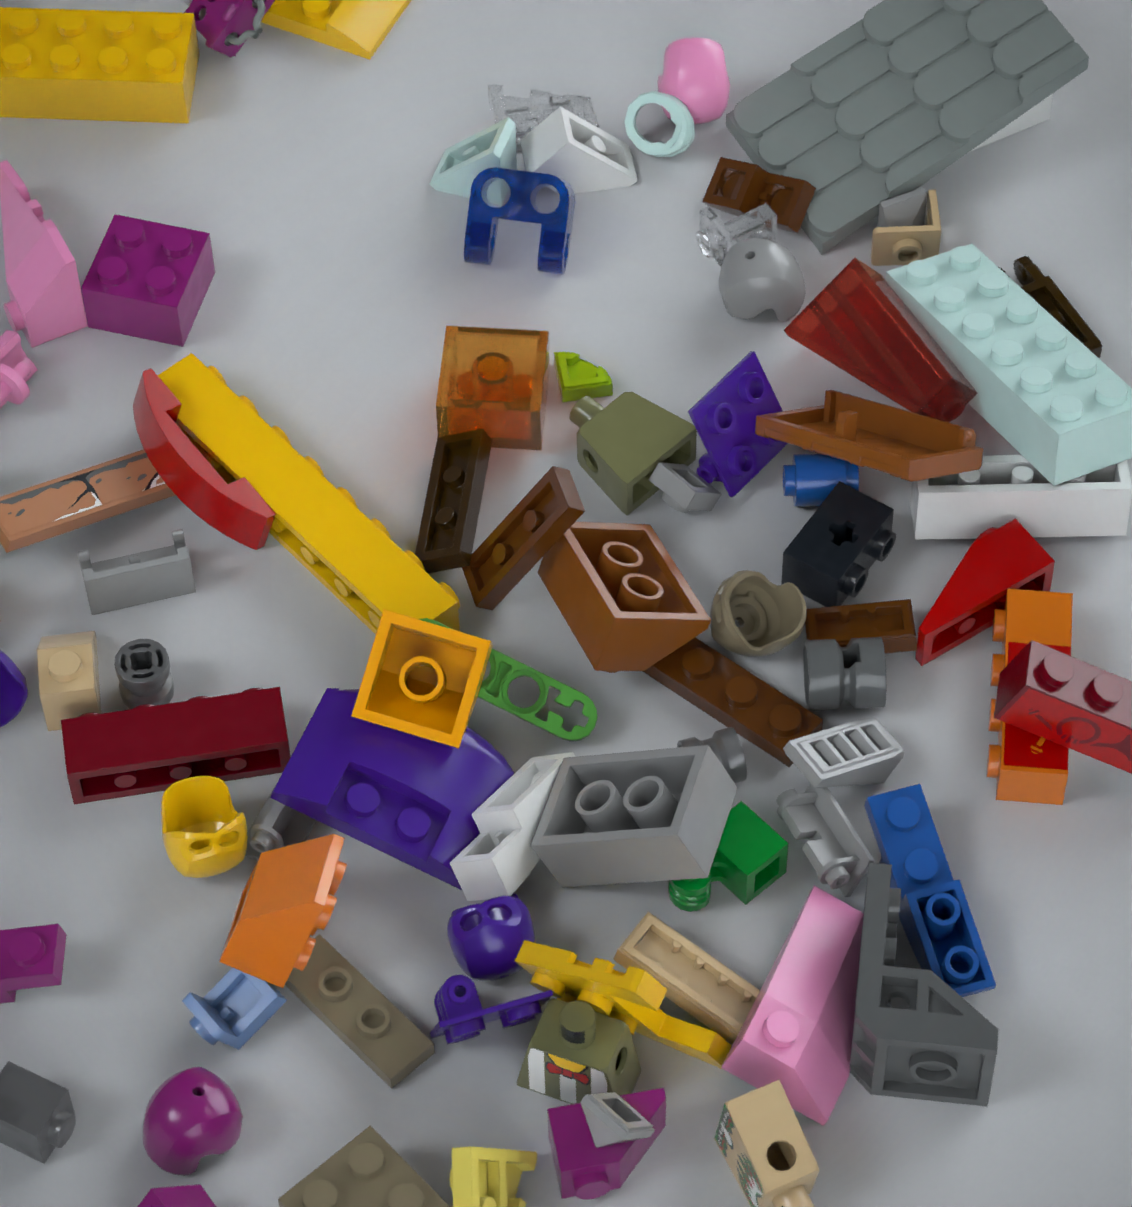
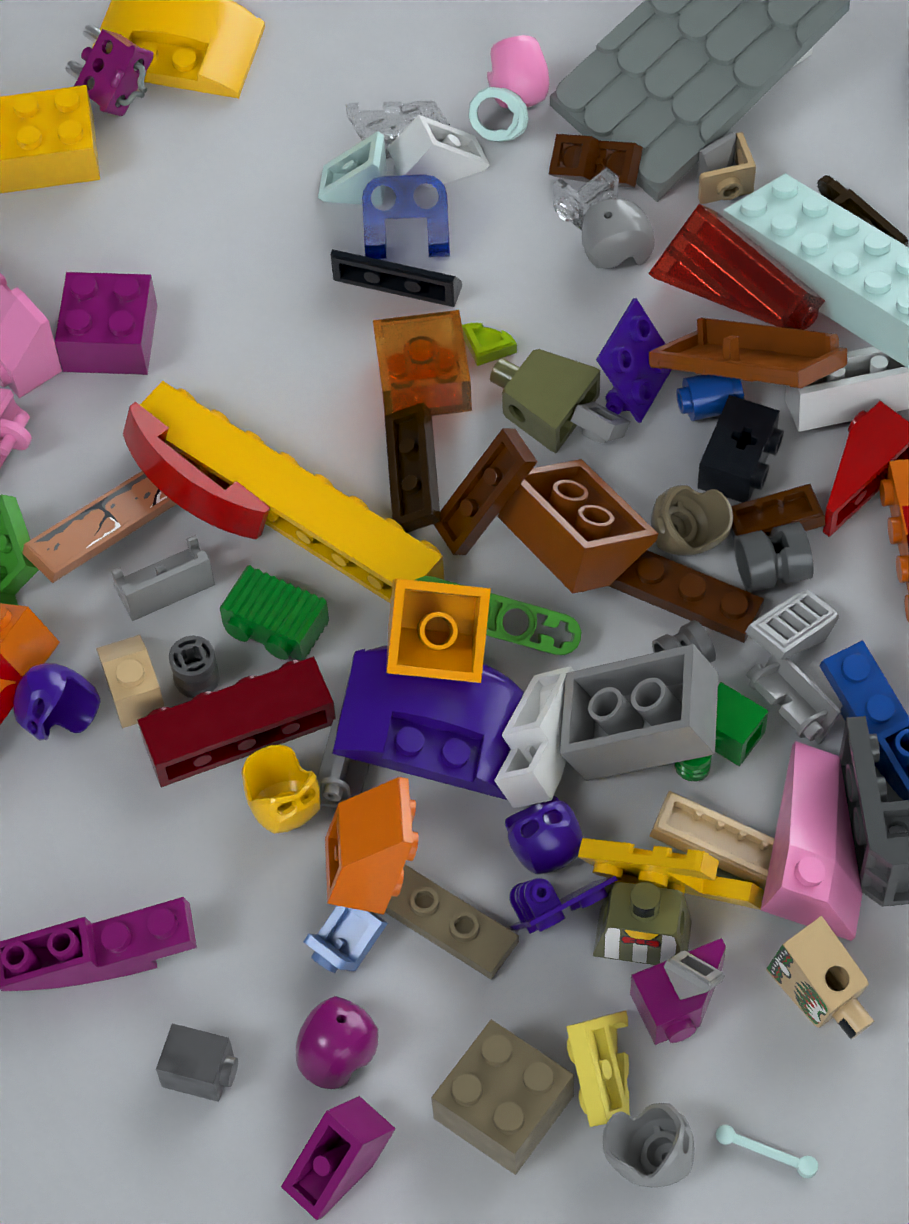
camera: 10 degrees left, 5 degrees up
(251, 634) = (274, 614): none -> green brick
(492, 287) = (395, 278): none -> black slope

